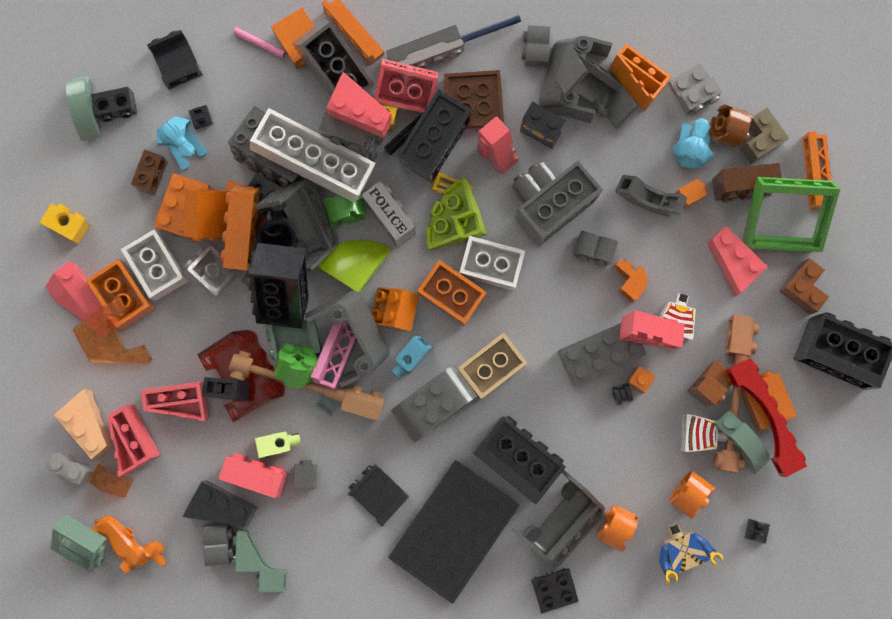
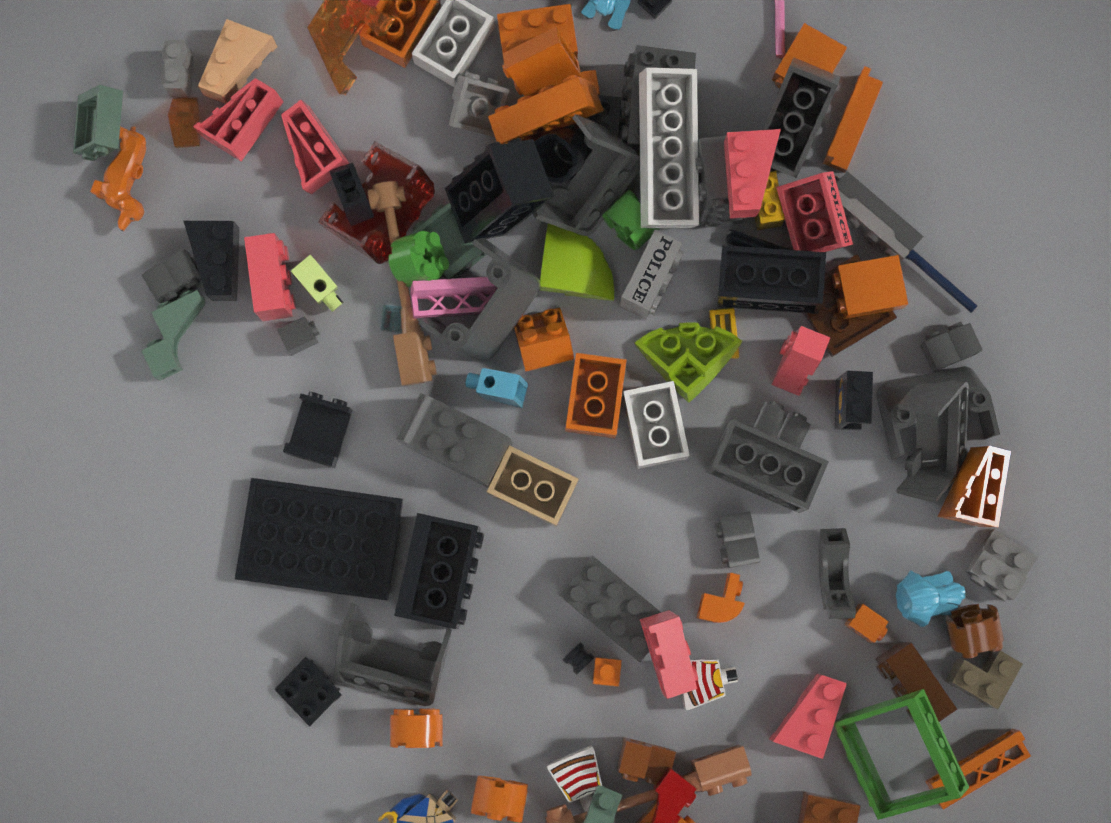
camera: 60 degrees right, 0 degrees up
(472, 75) = (870, 287): none -> orange brick

